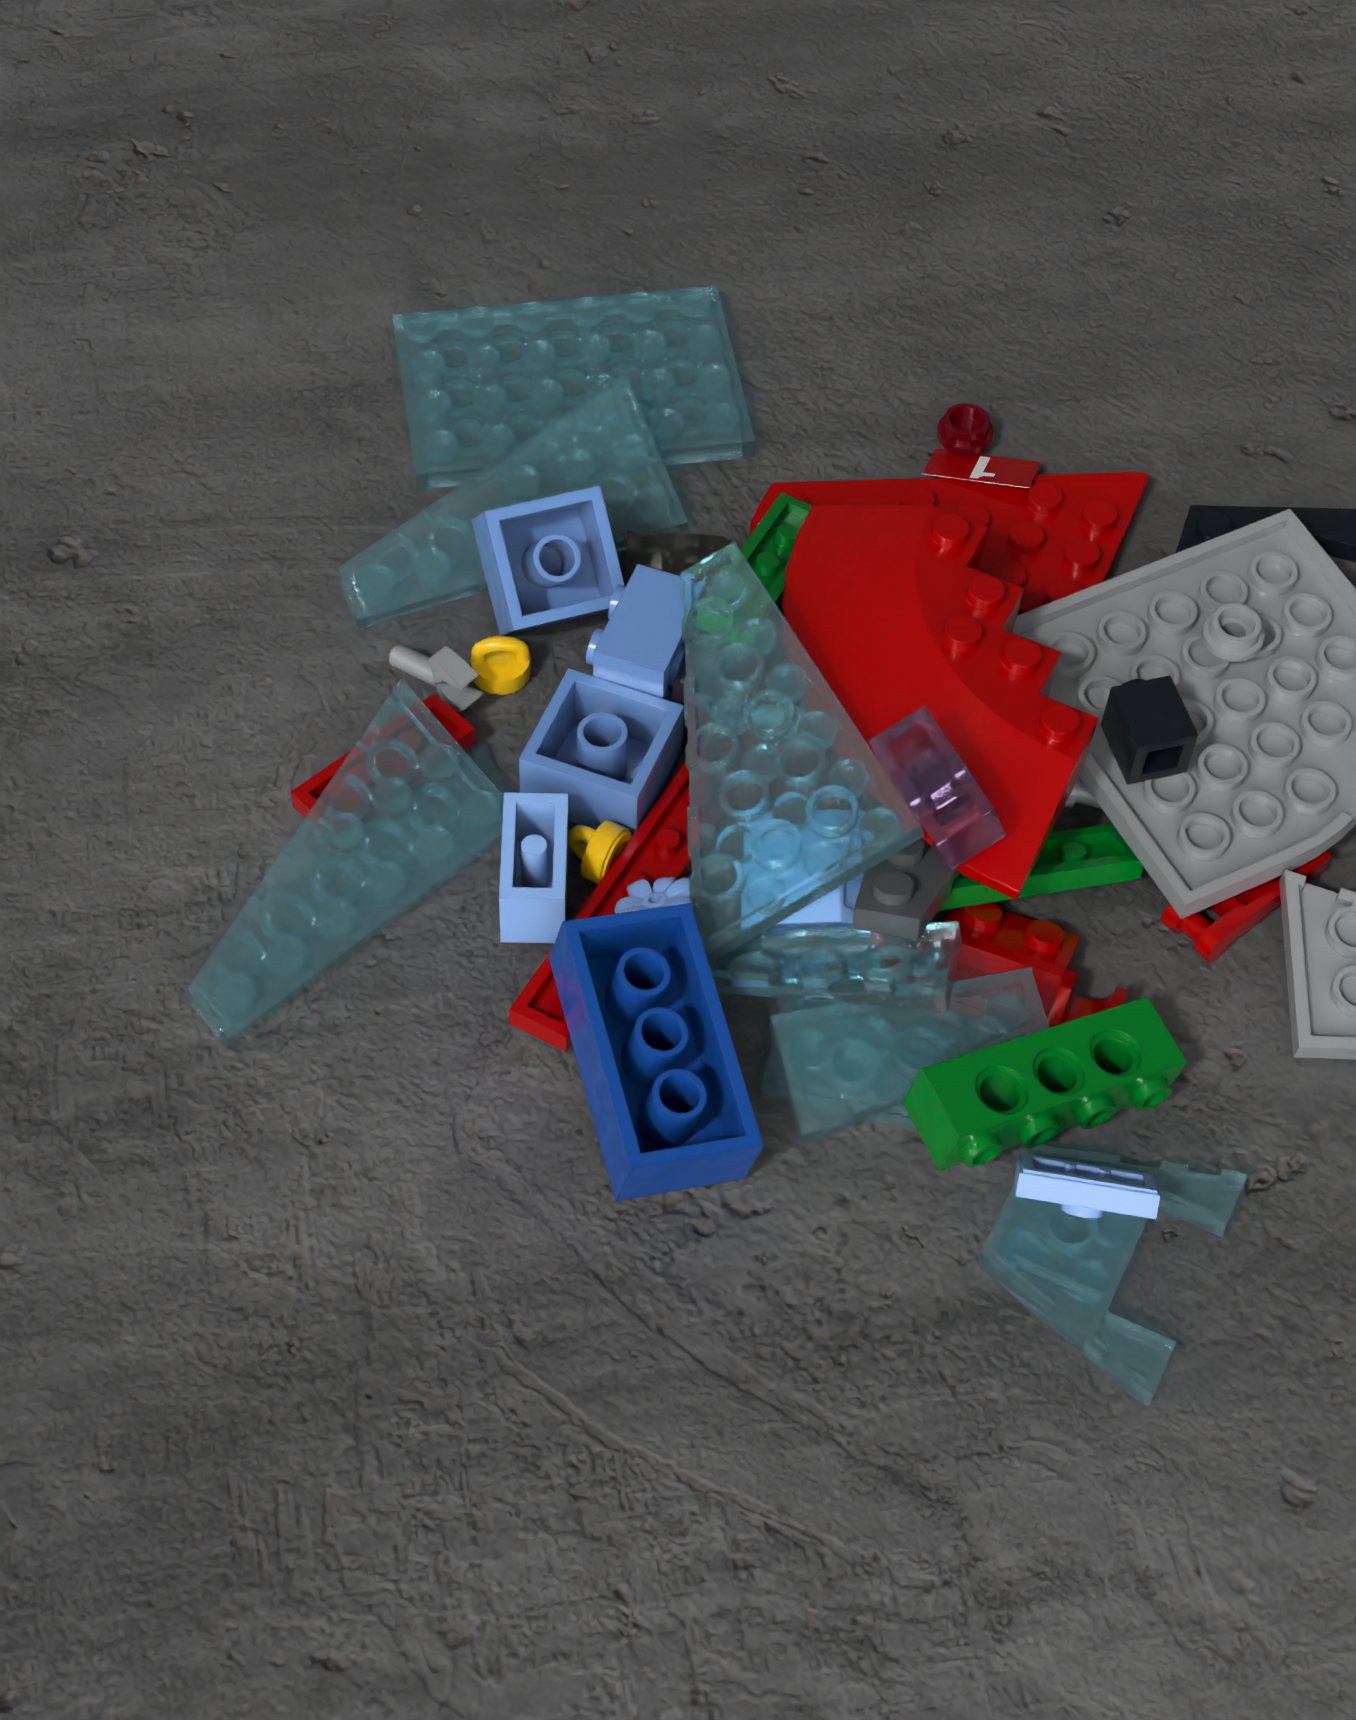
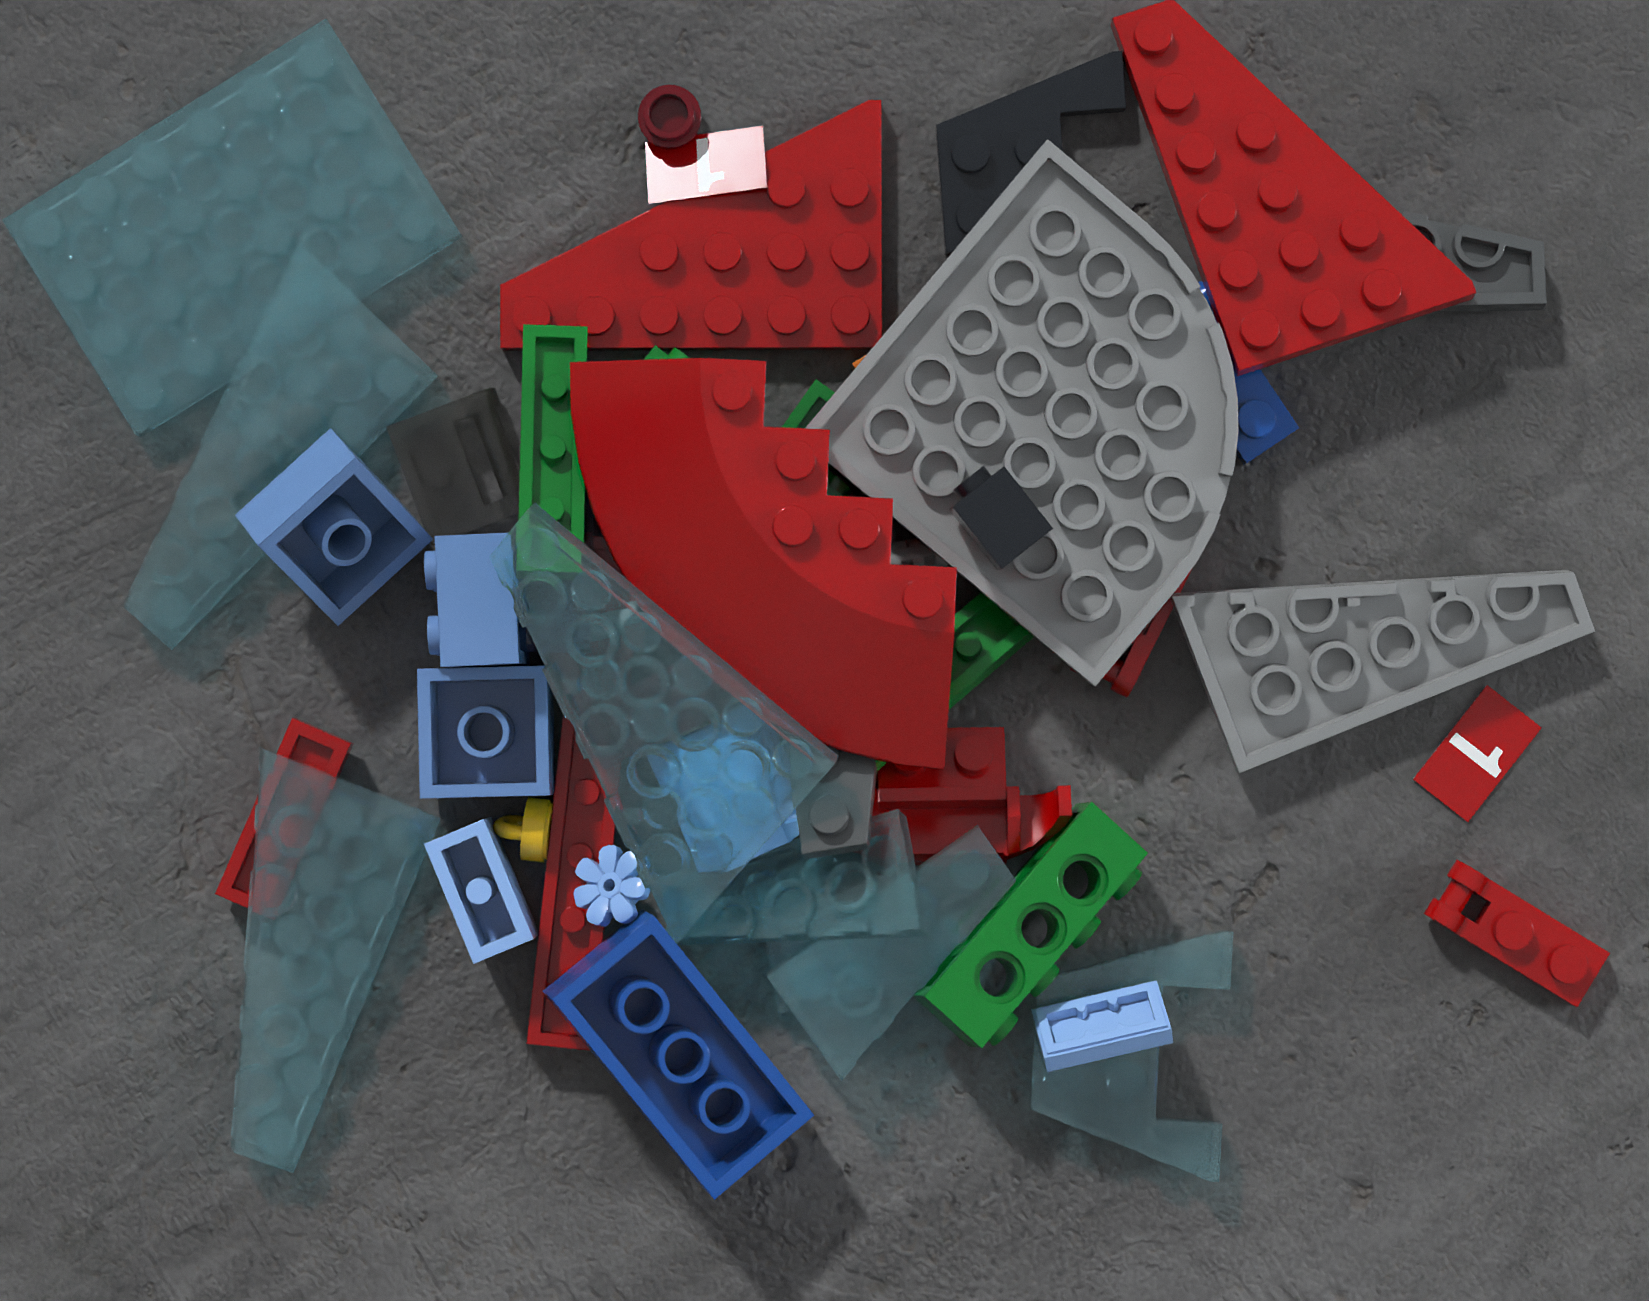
camera: 20 degrees left, 35 degrees up
(442, 670) = (279, 687): light grey bar -> none
(501, 664) = (330, 644): yellow tile -> none
(938, 788) = (838, 732): clear purple brick -> none
(1233, 632) = (1061, 341): light grey plate -> none

